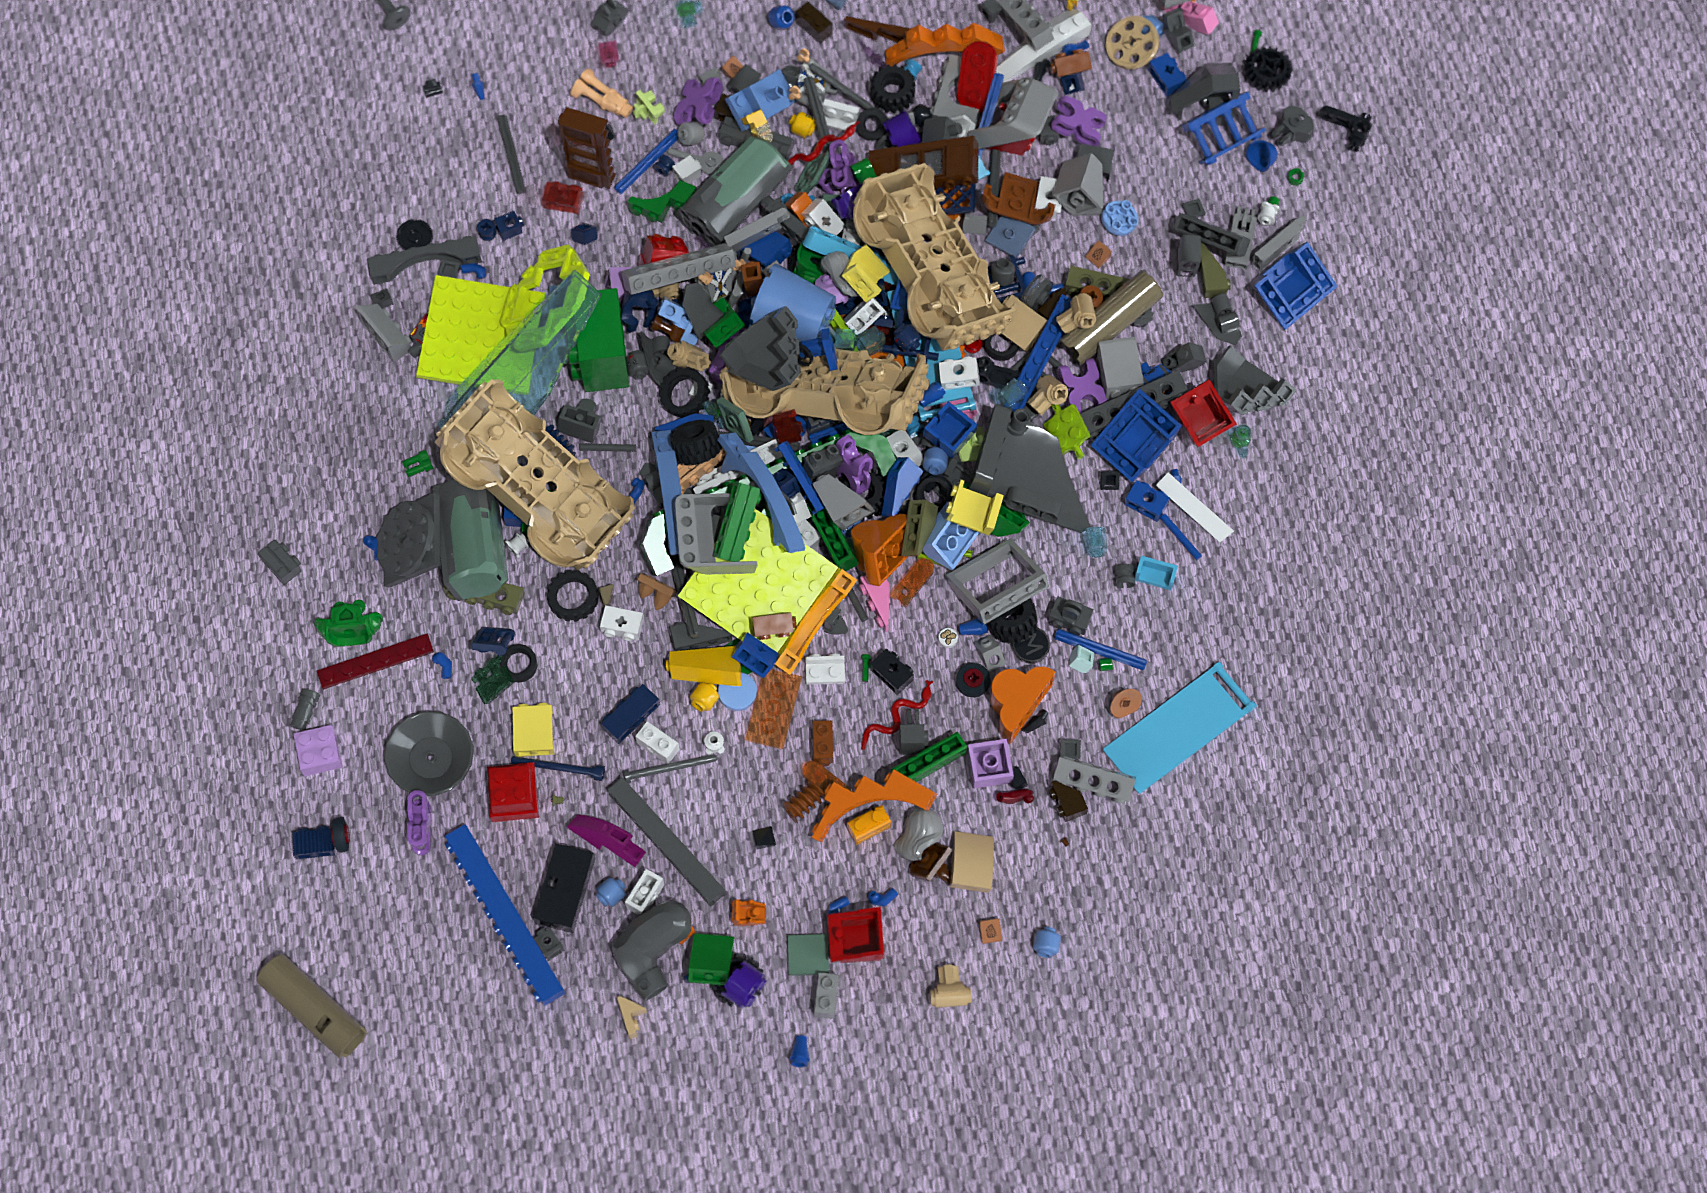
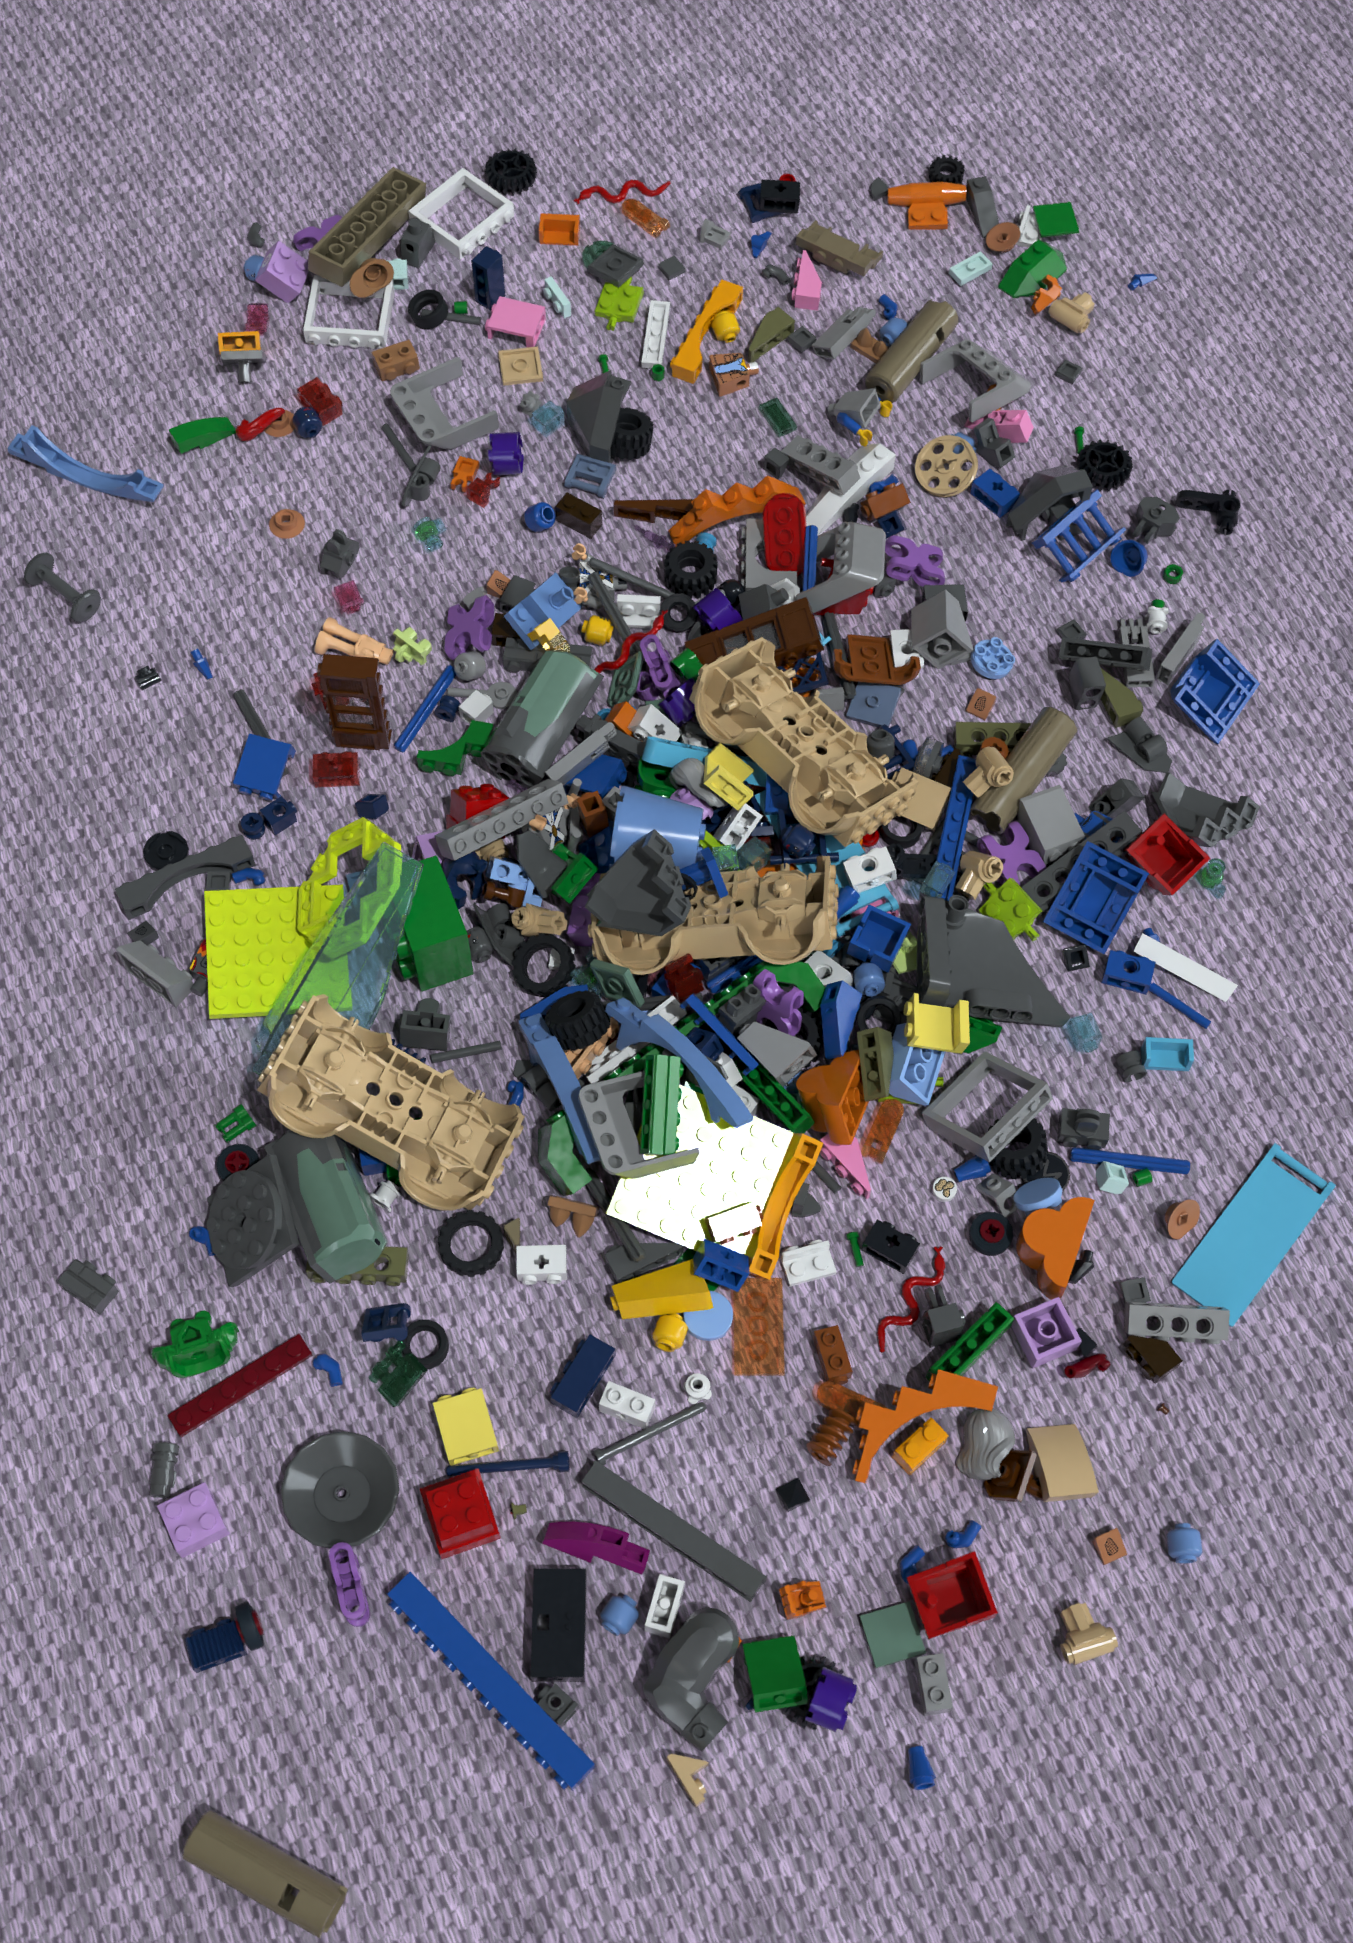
camera: 15 degrees left, 5 degrees down
(410, 489) = (235, 1156): none -> wheel
(505, 183) = (262, 766): none -> blue panel
(1016, 658) = (1038, 1195): none -> light blue tile

